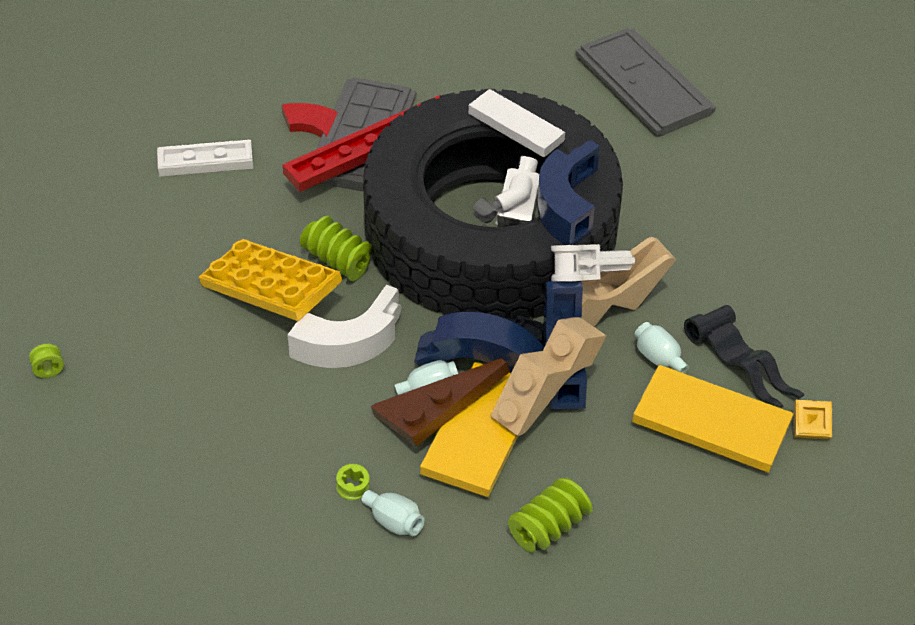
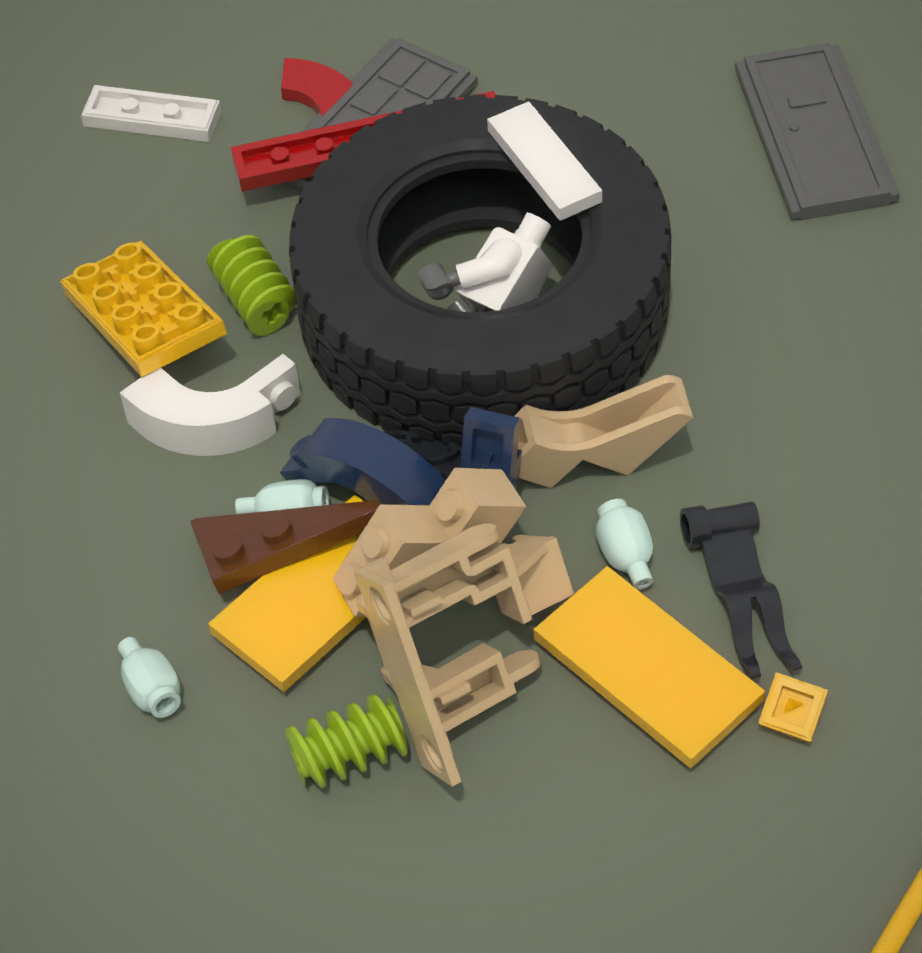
camera: 25 degrees right, 5 degrees up
(355, 472) = (118, 604): lime bush -> none
(558, 205) = (543, 266): dark blue arch -> none
(587, 262) = (542, 389): white connector -> none
(594, 458) = (471, 569): none -> tan container

